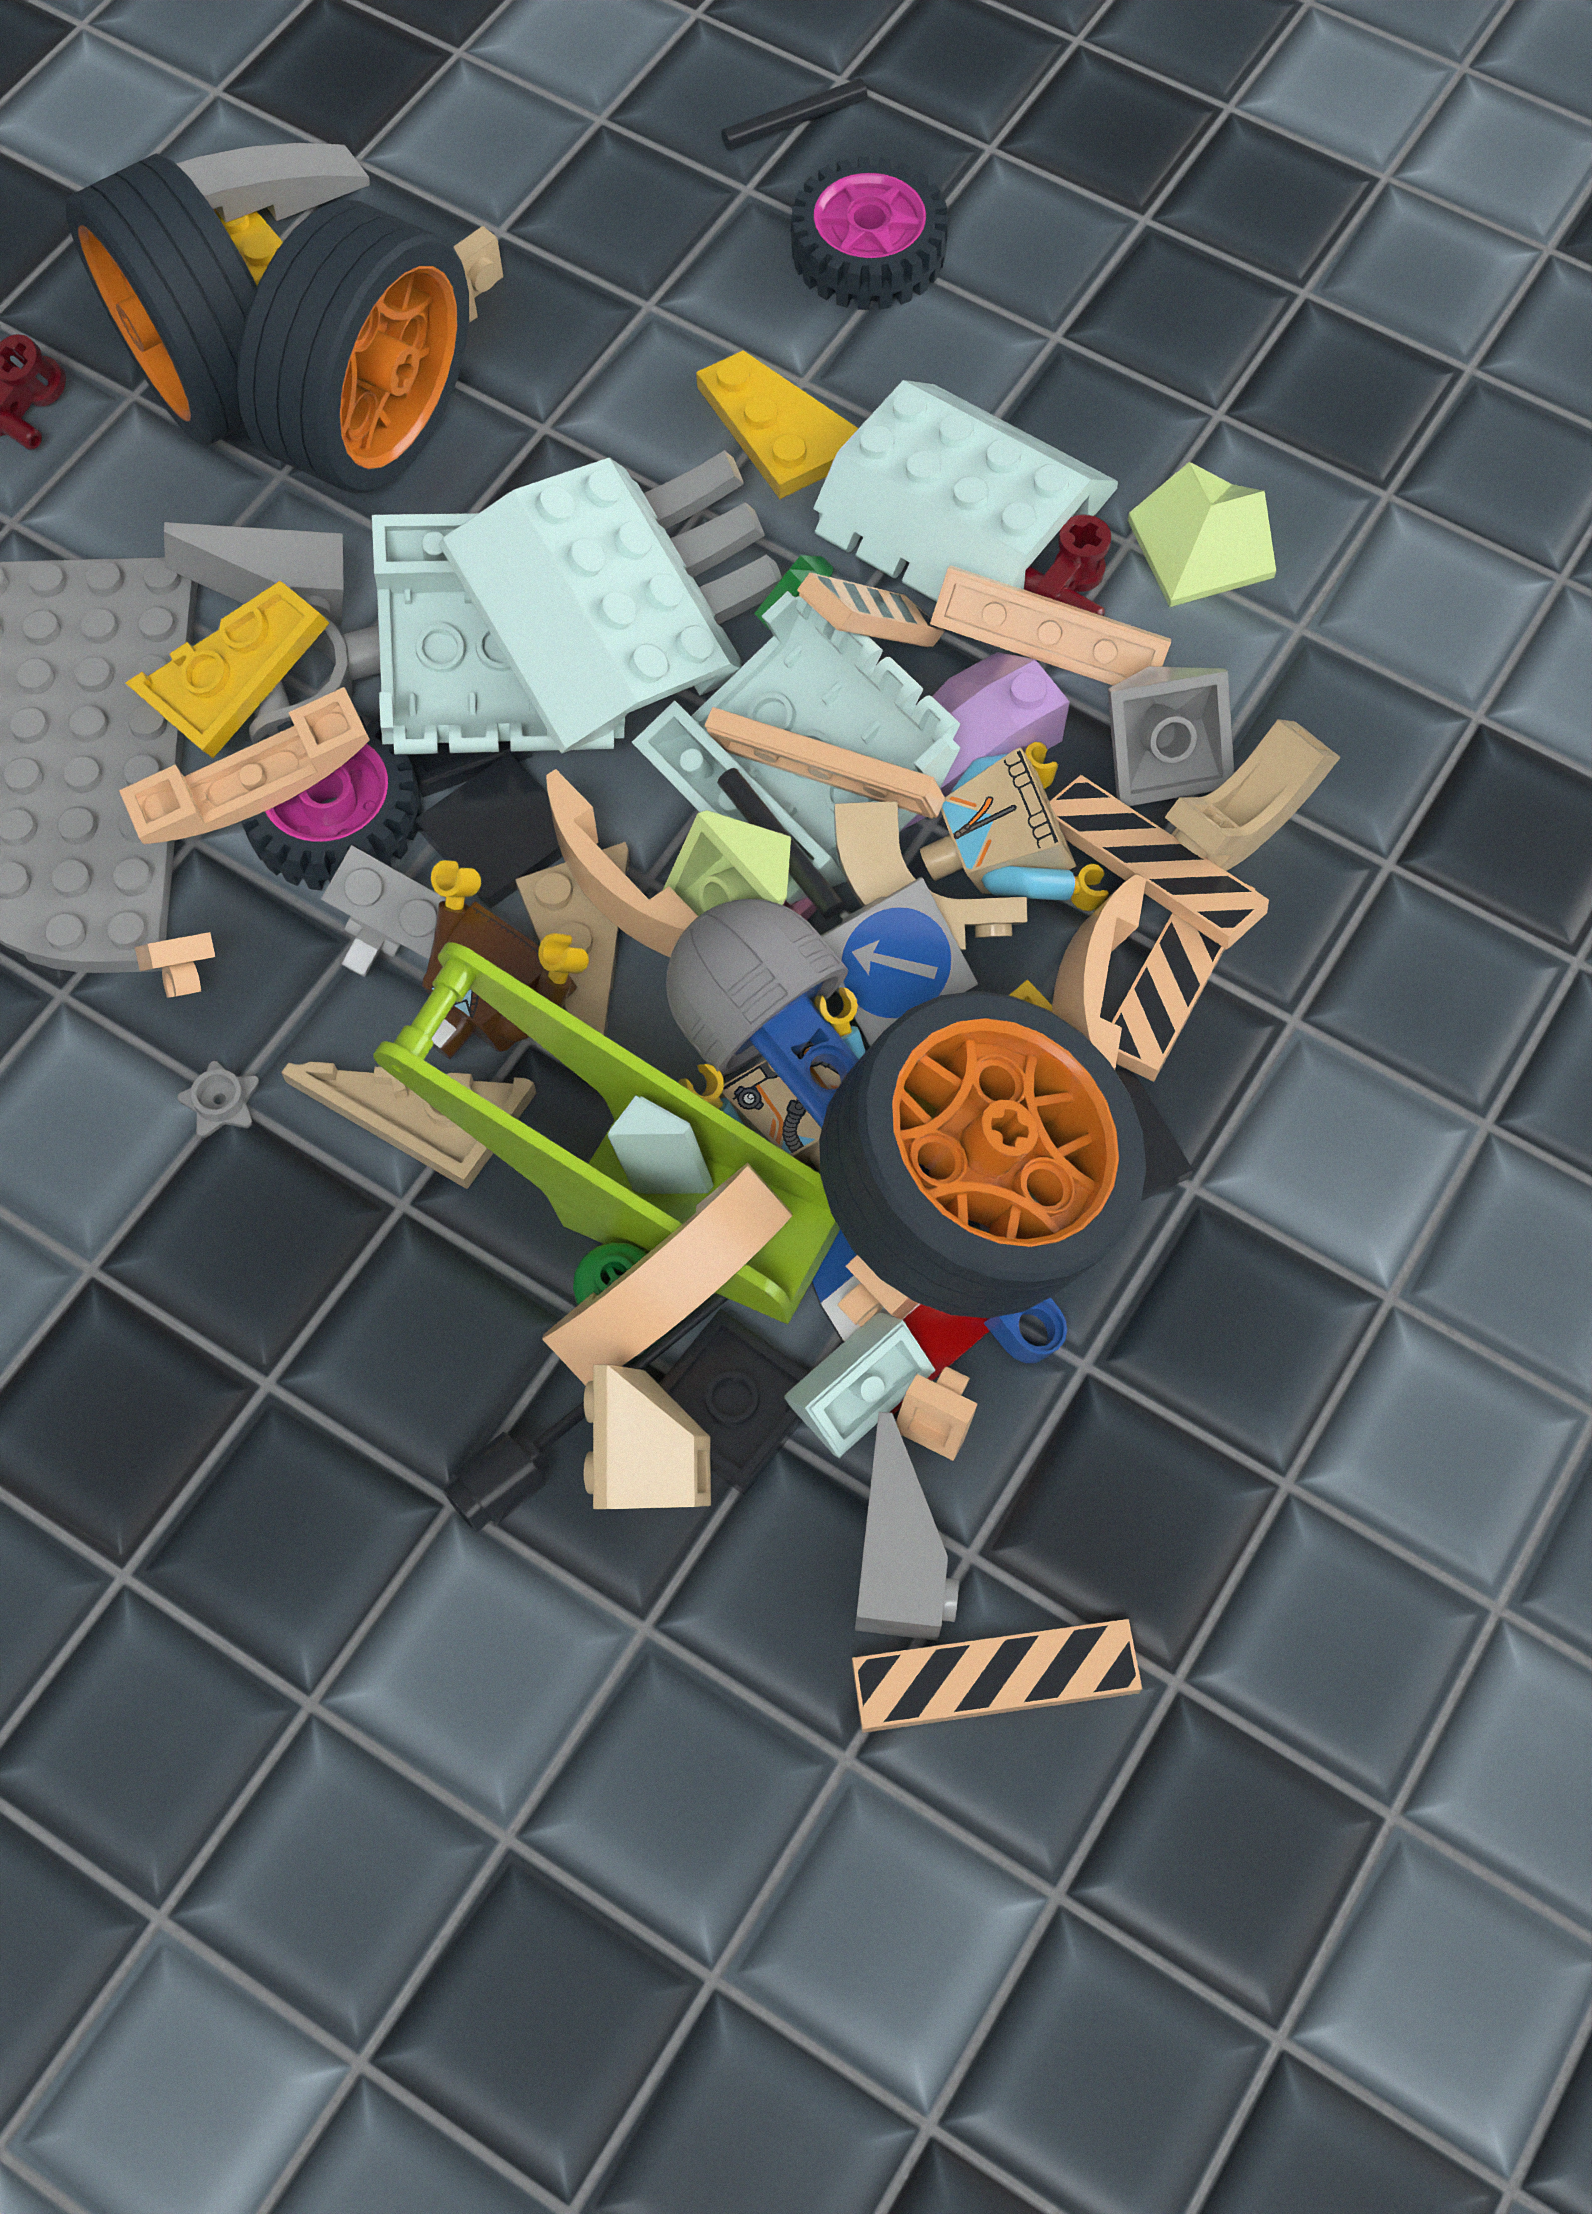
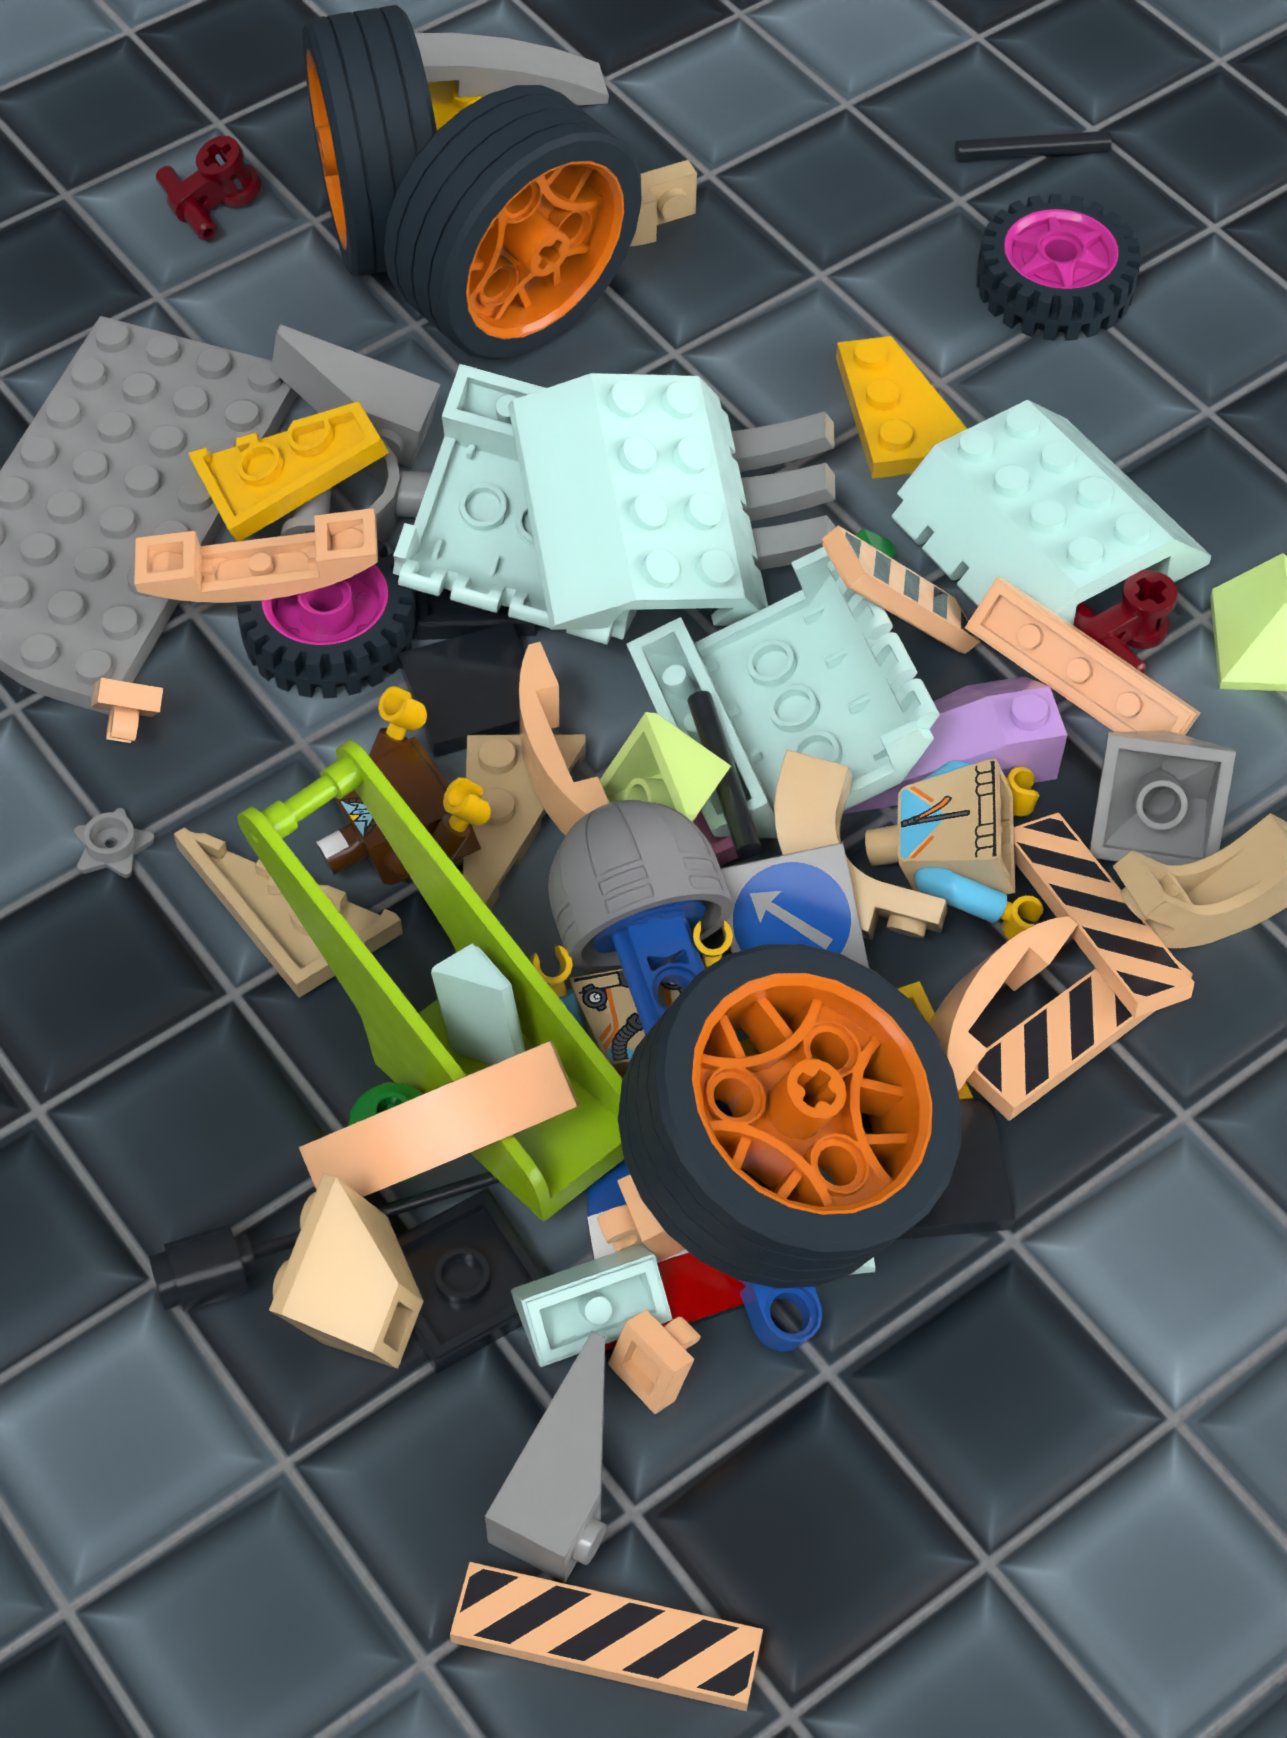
camera: 20 degrees right, 10 degrees down
(383, 910) = (327, 716): light grey hinge -> none
(825, 763) = (800, 716): light nougat tile -> none

